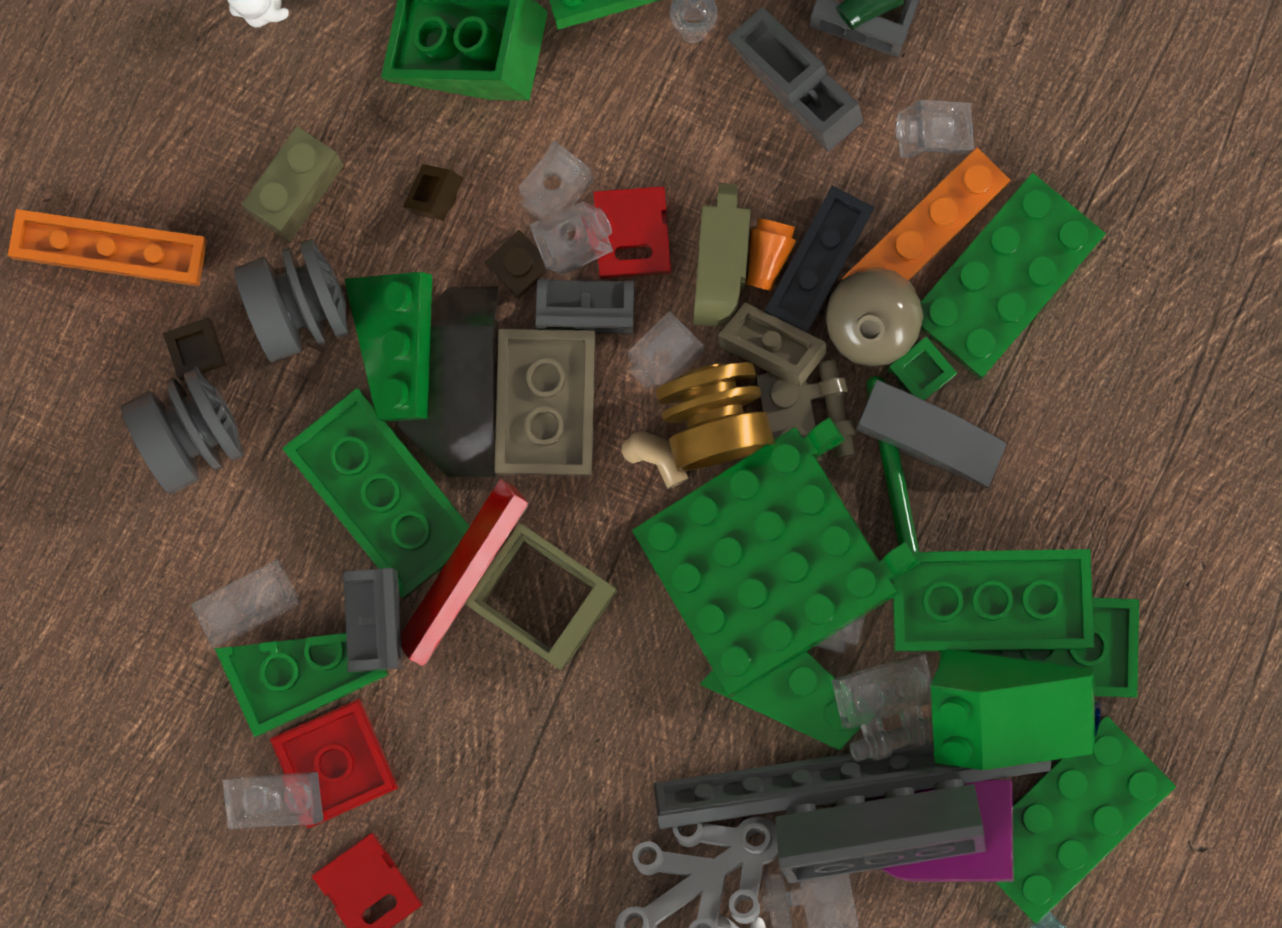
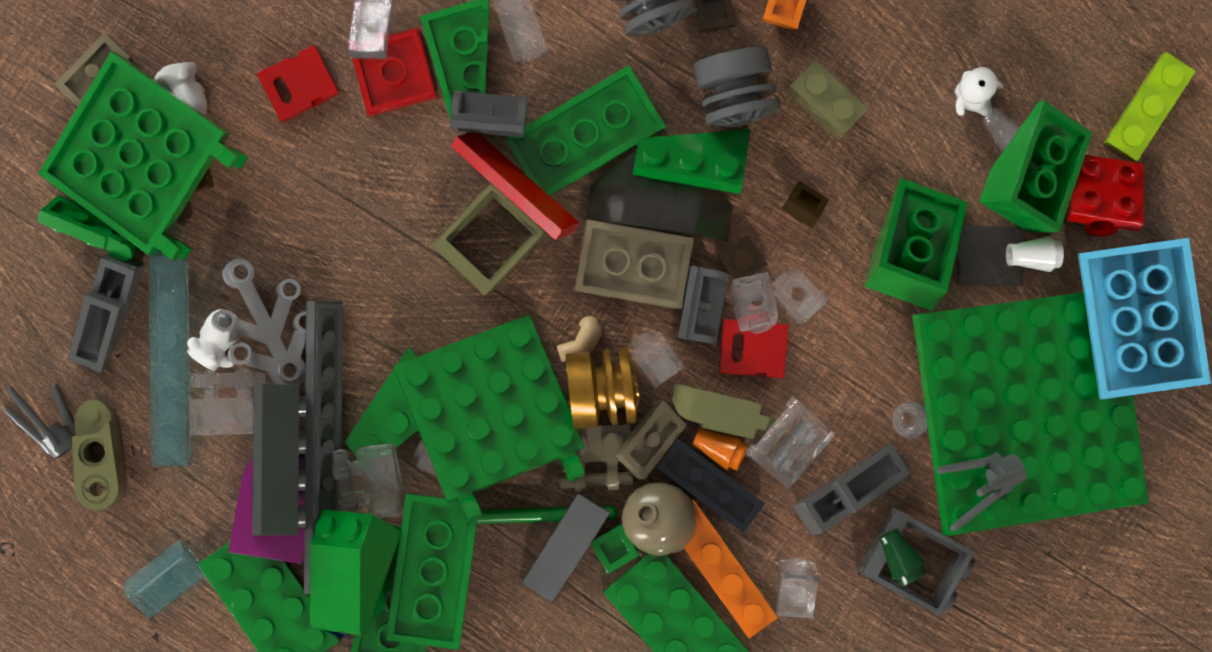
camera: 90 degrees right, 5 degrees up
(752, 153) = (797, 448): none -> clear plate

